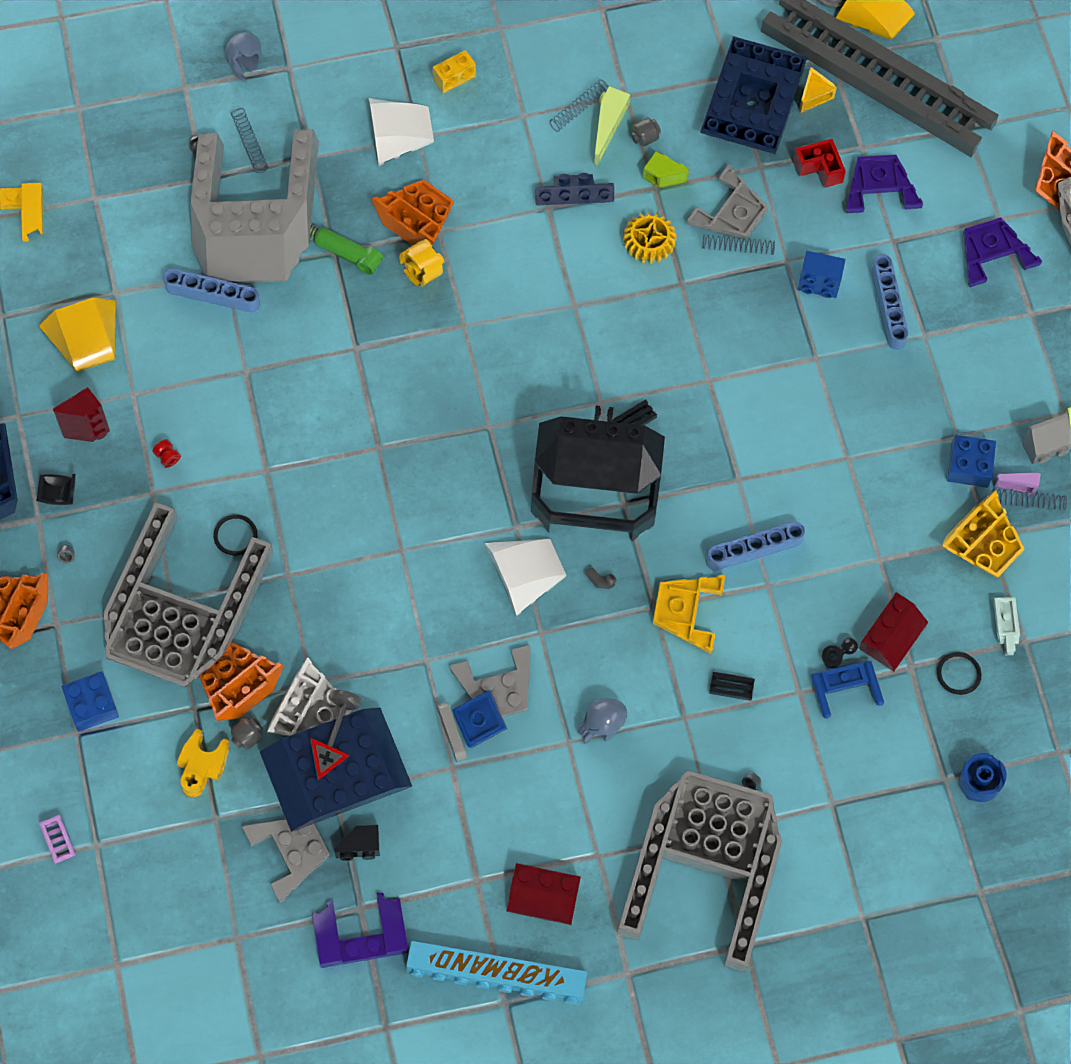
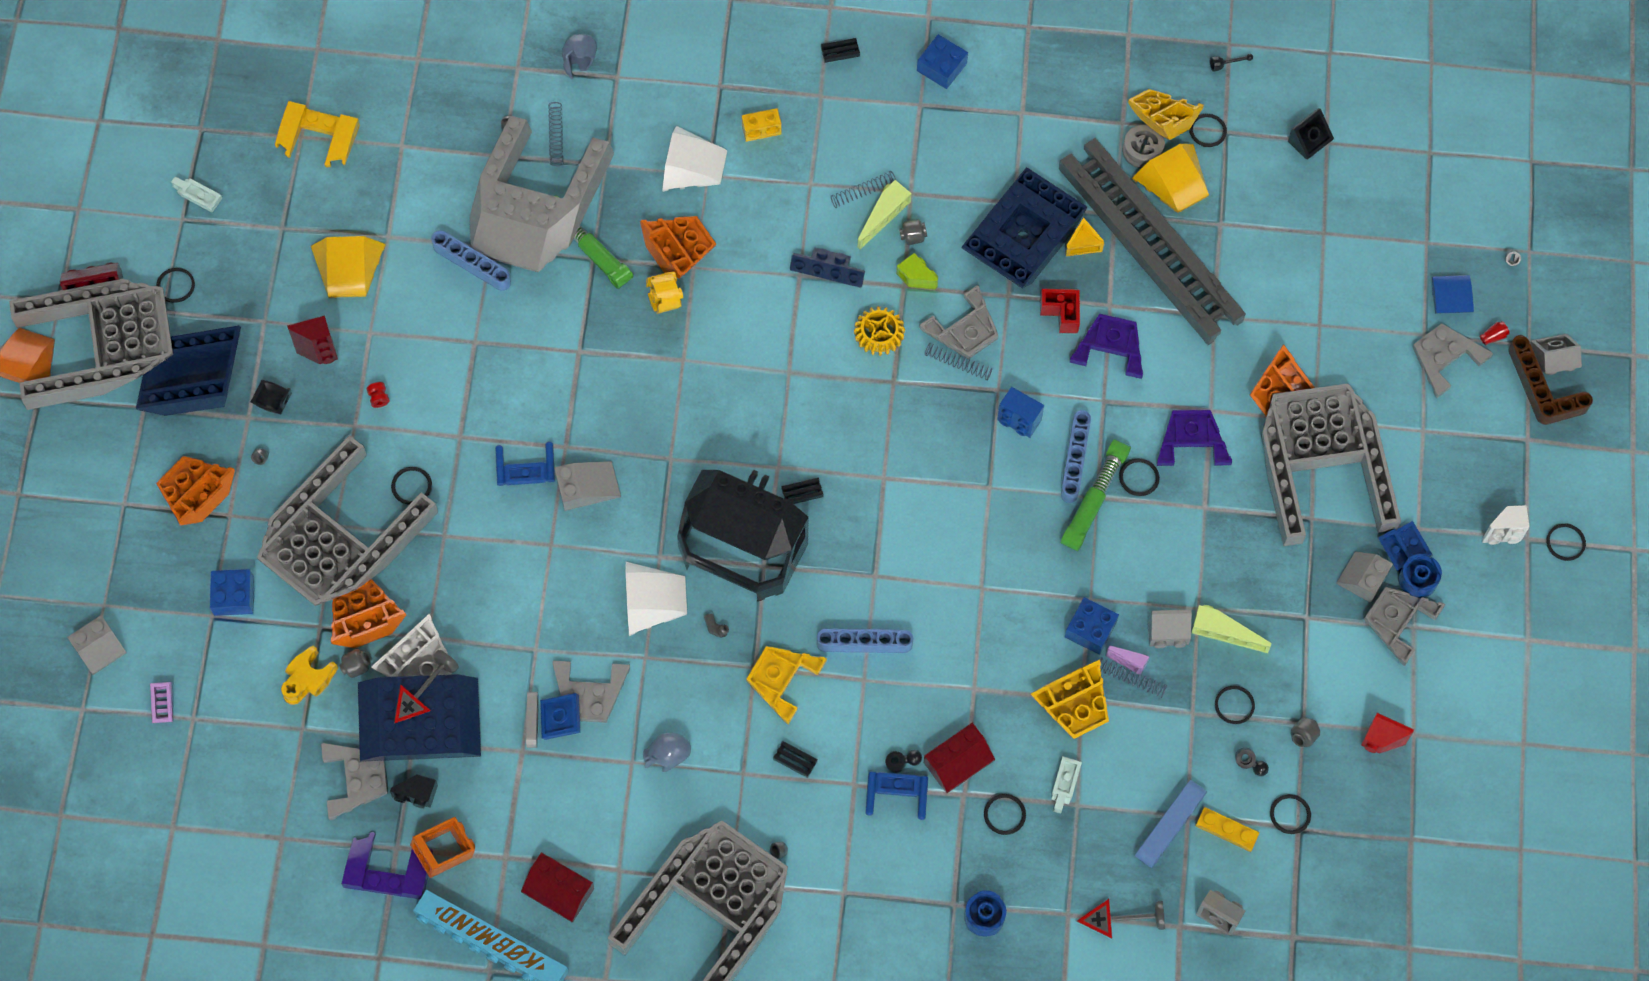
camera: 20 degrees right, 0 degrees up
(349, 485) = (525, 473): none -> blue plate
(398, 906) = (425, 856): none -> orange window
(414, 478) = (586, 483): none -> light grey slope
(920, 375) = (1094, 497): none -> bright green piece
(955, 319) = (1141, 461): none -> black tyre

